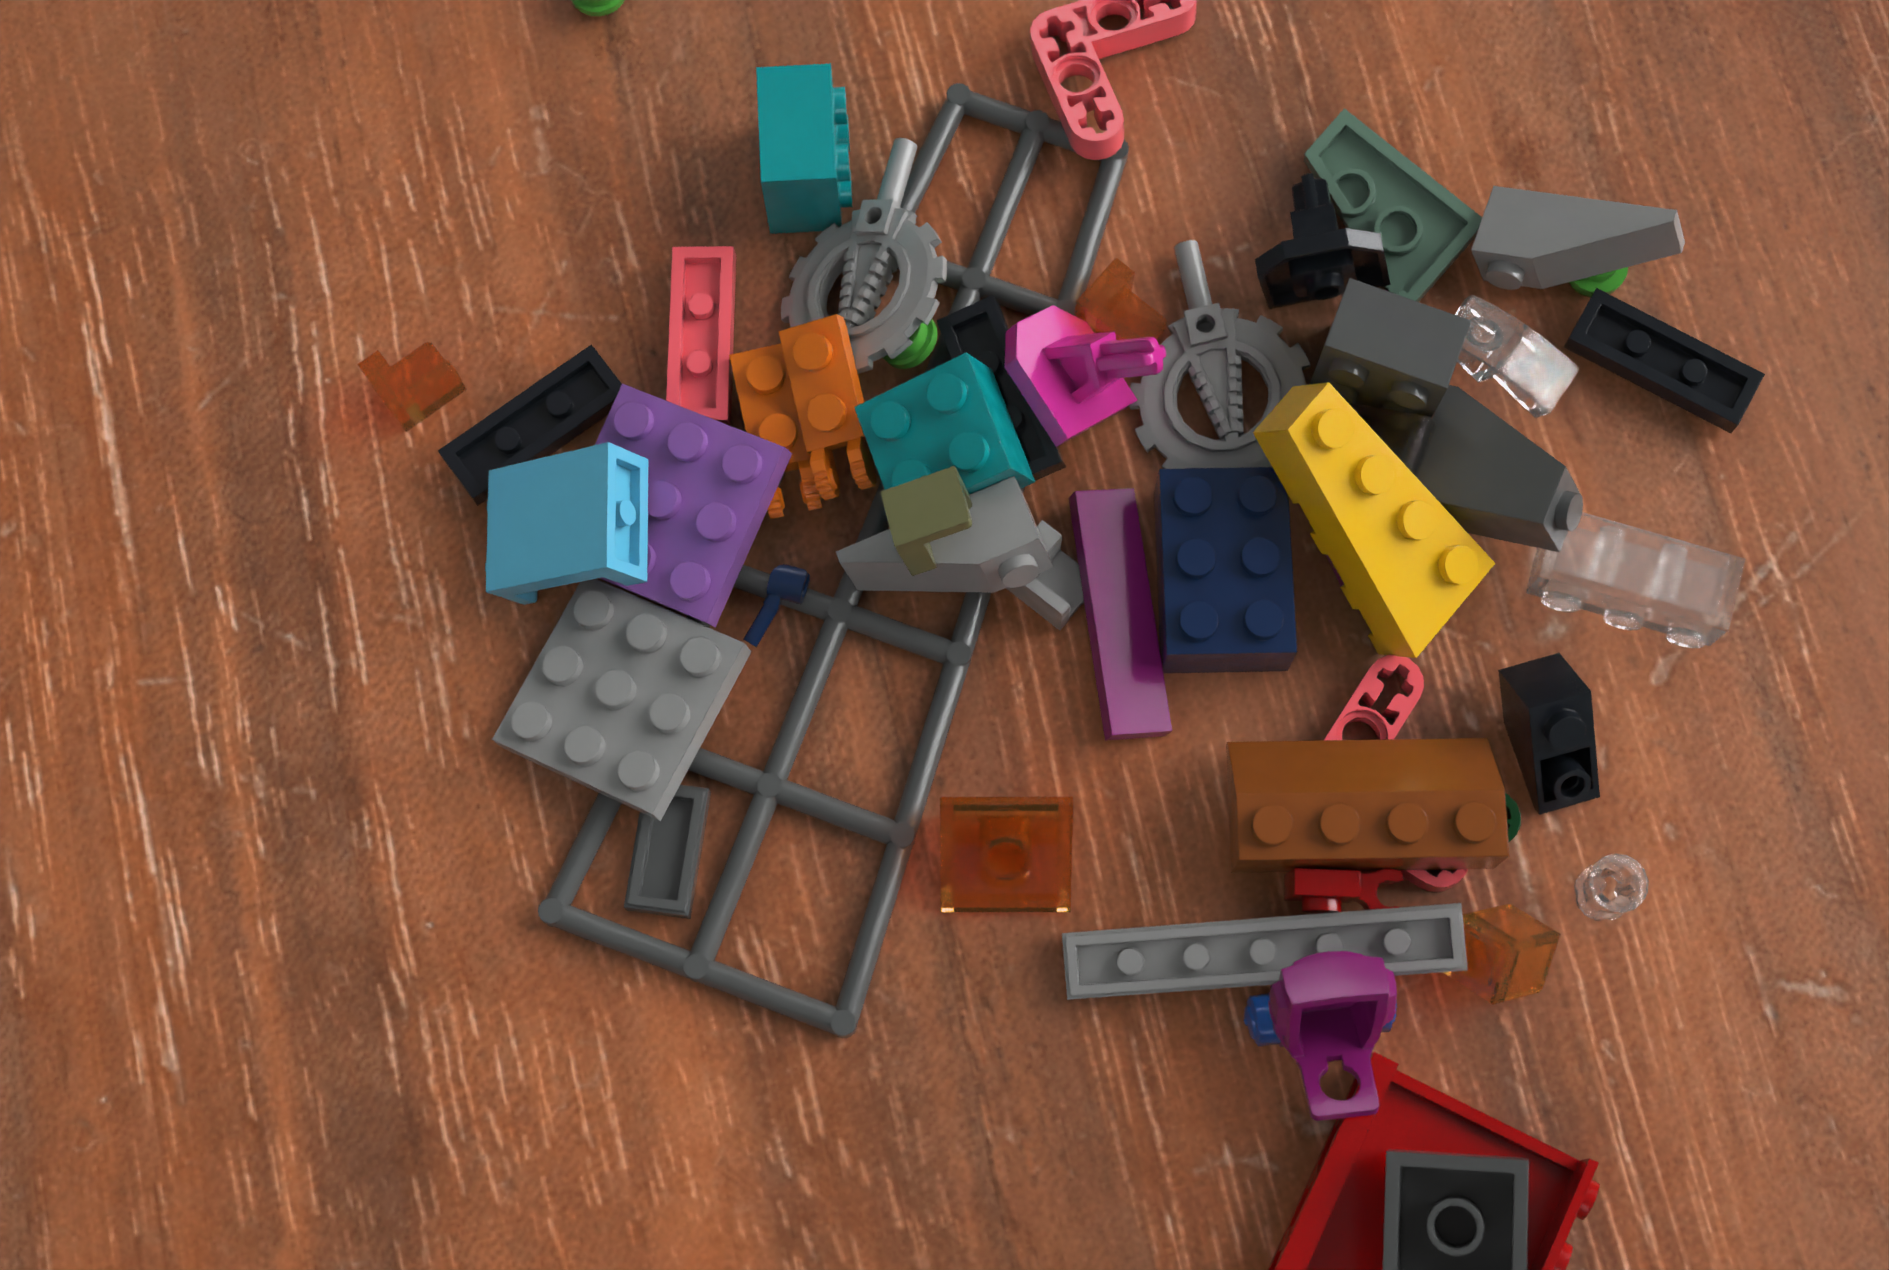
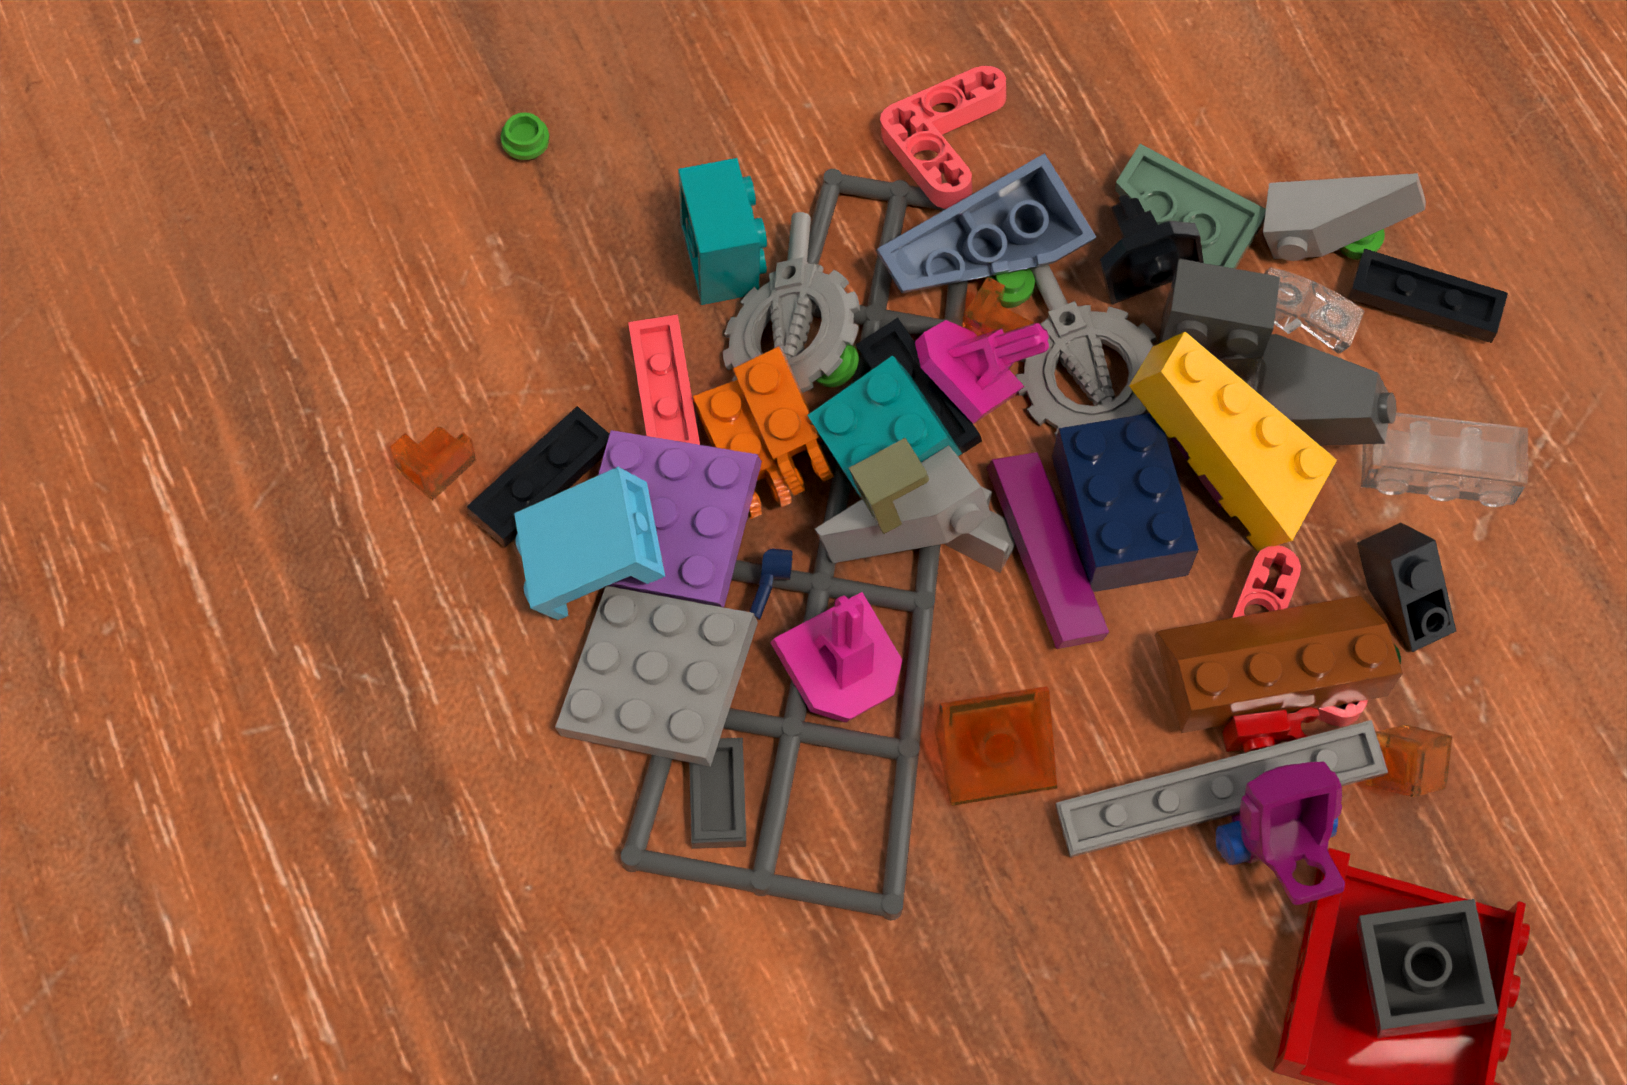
camera: 15 degrees left, 10 degrees down
(842, 713) = (841, 660): none -> dark pink piece
(1144, 198) = (998, 230): none -> sand blue wedge
(1151, 260) = (1018, 286): none -> bright green plate
(1629, 892) = (1491, 682): clear bush -> none

